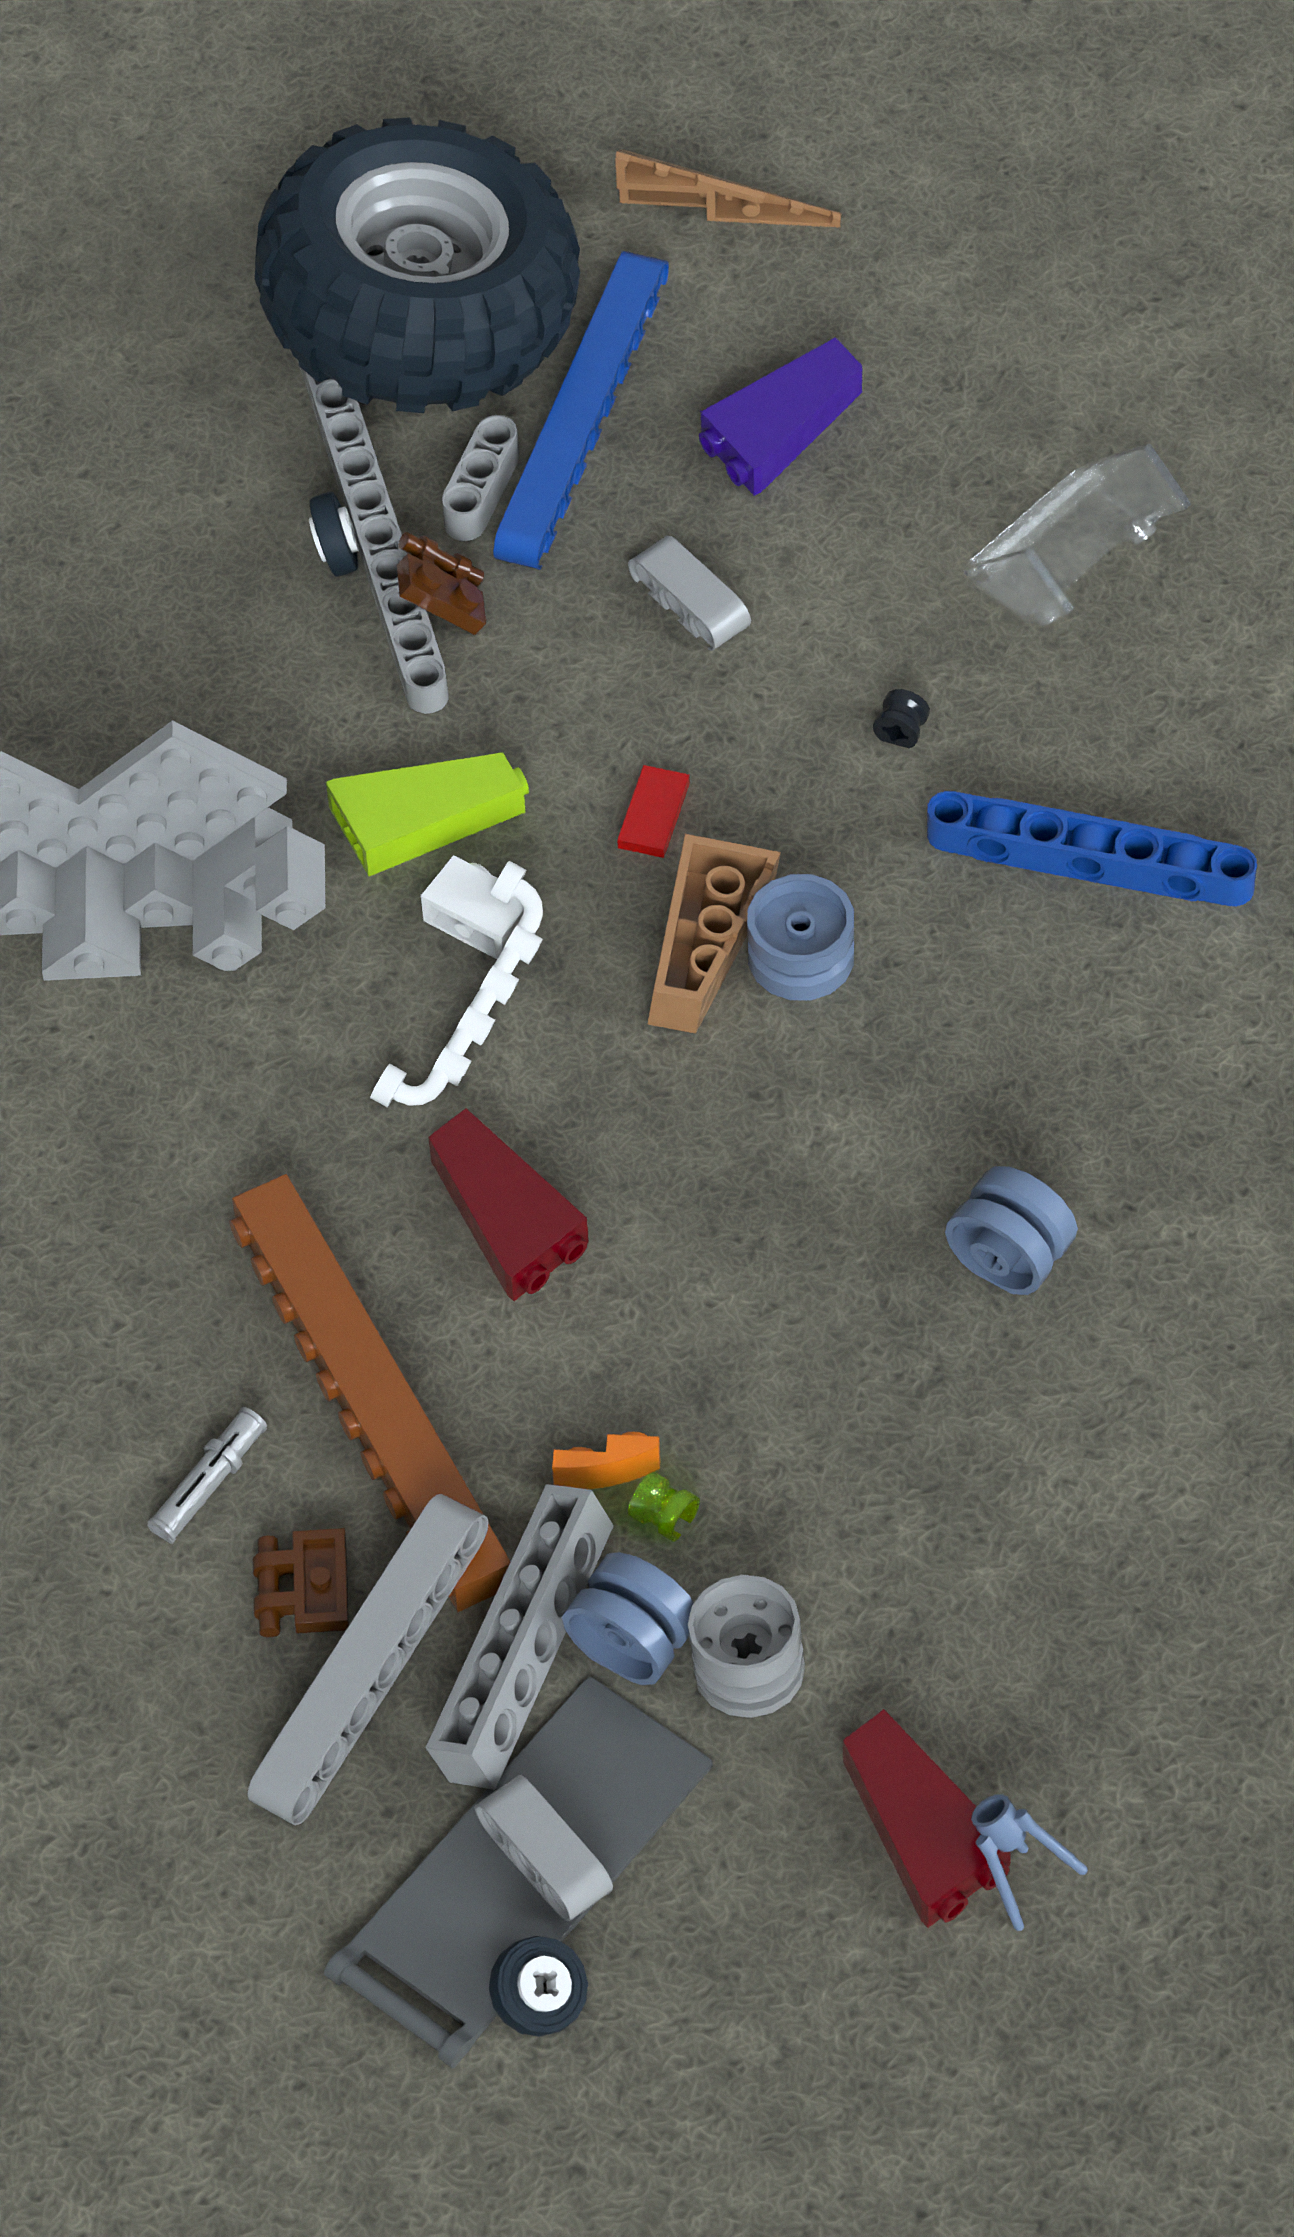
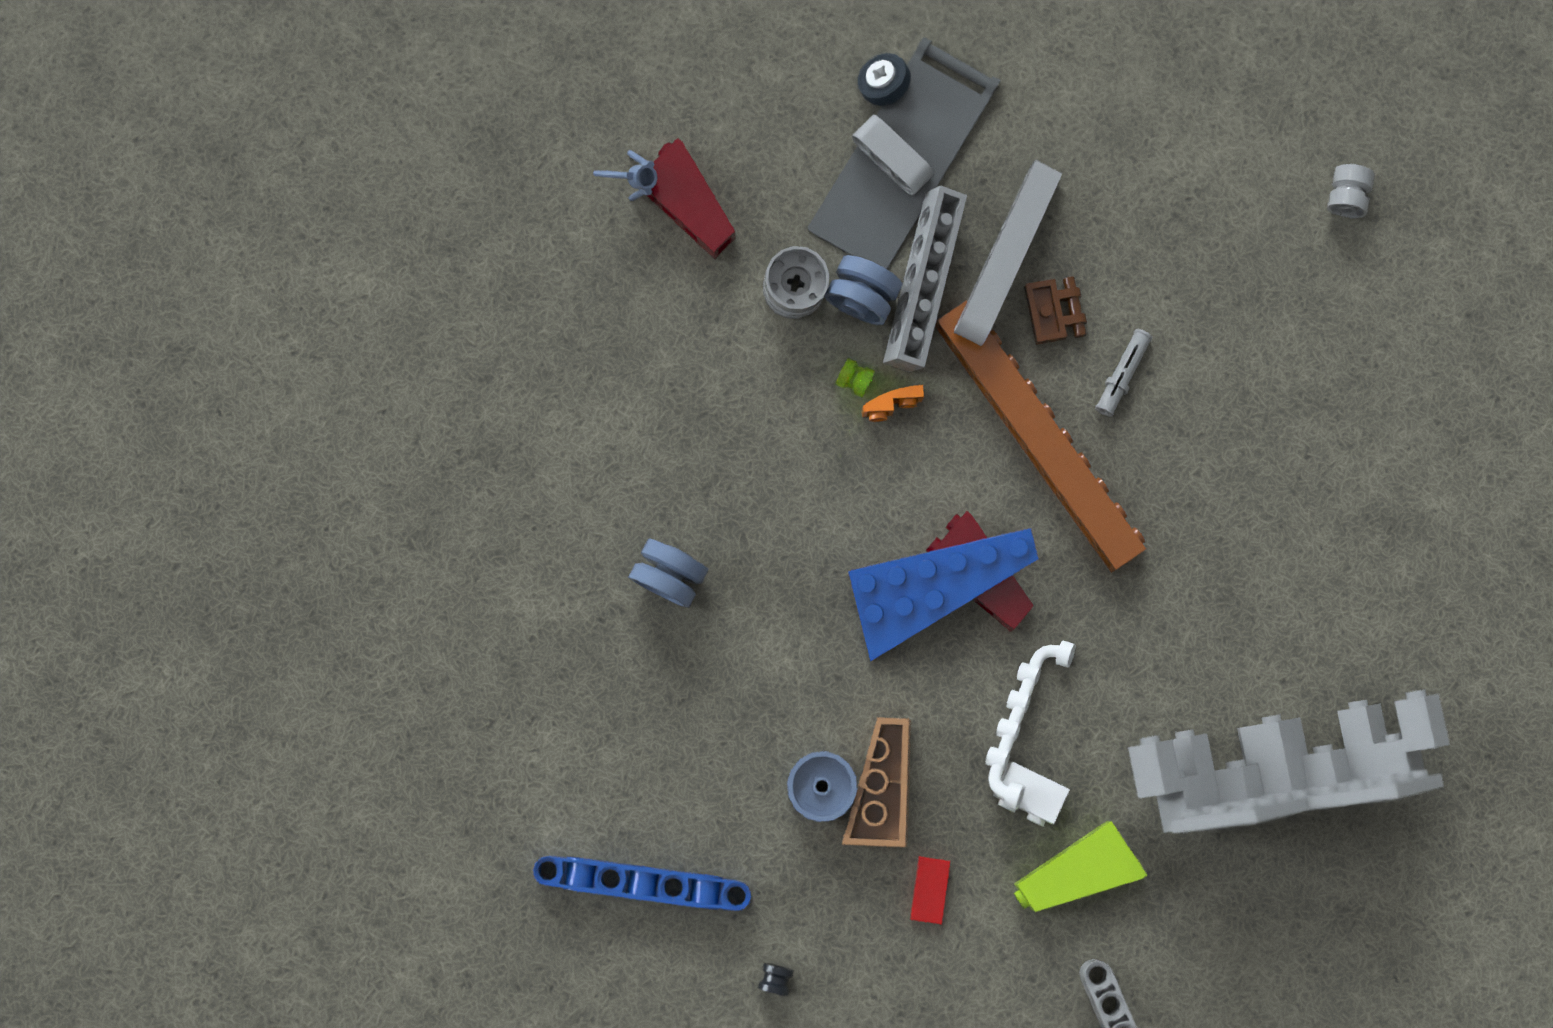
camera: 170 degrees right, 25 degrees up
(611, 1174) = (917, 590): none -> blue wing

